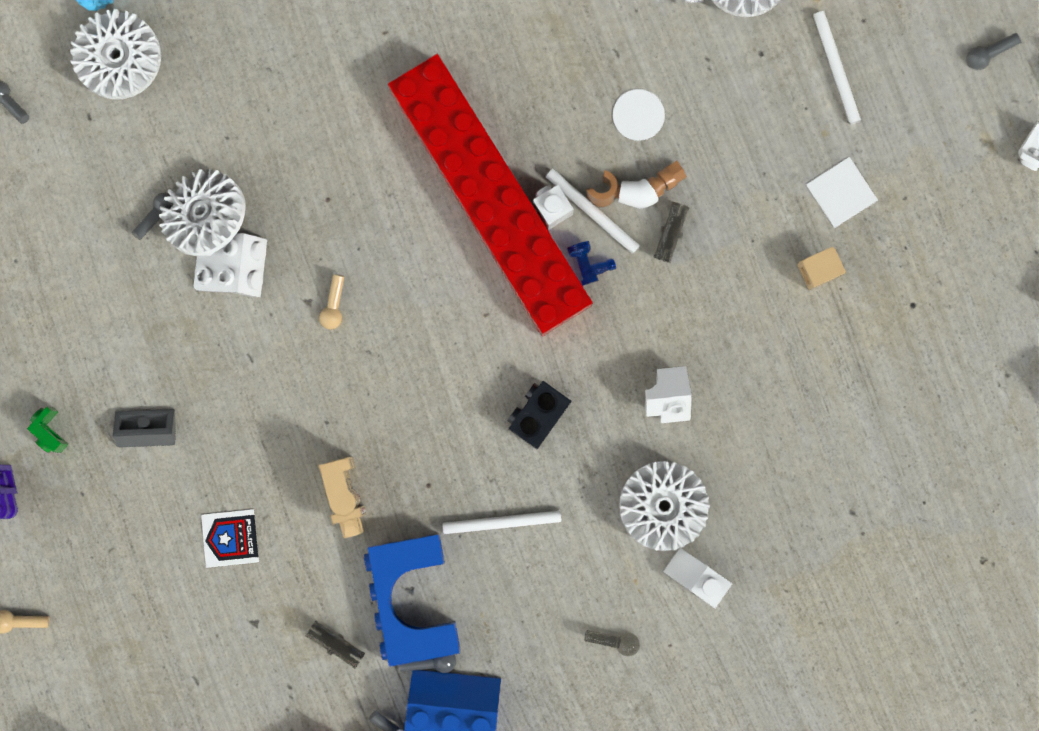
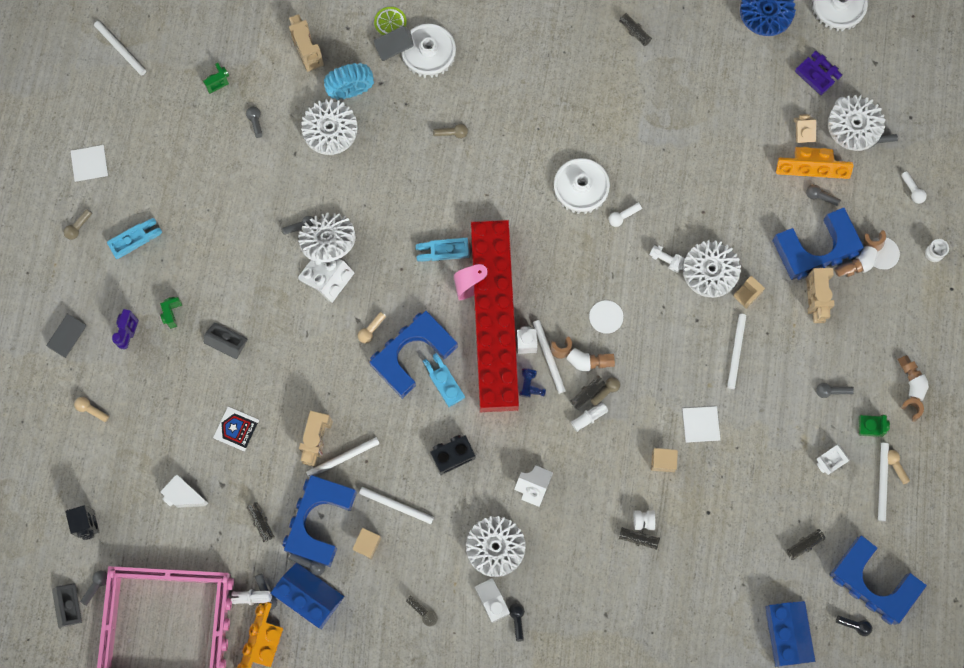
camera: 30 degrees right, 10 degrees down
(208, 666) = (181, 494): none -> white slope
(371, 141) = (444, 249): none -> medium azure hinge
(394, 498) = (343, 457): none -> white bar
(404, 266) = (422, 329): none -> blue arch
(429, 165) = (467, 278): none -> bright pink piece
(472, 322) = (444, 382): none -> medium azure hinge
(492, 595) = (367, 543): none -> tan panel
(691, 263) = (589, 416): none -> white axle
(698, 205) = (612, 385): none -> dark tan bar
(736, 574) = (516, 612): none -> black bar
(837, 362) = (644, 520): none -> white wheel
(843, 390) = (639, 538): none -> clear smoke pin

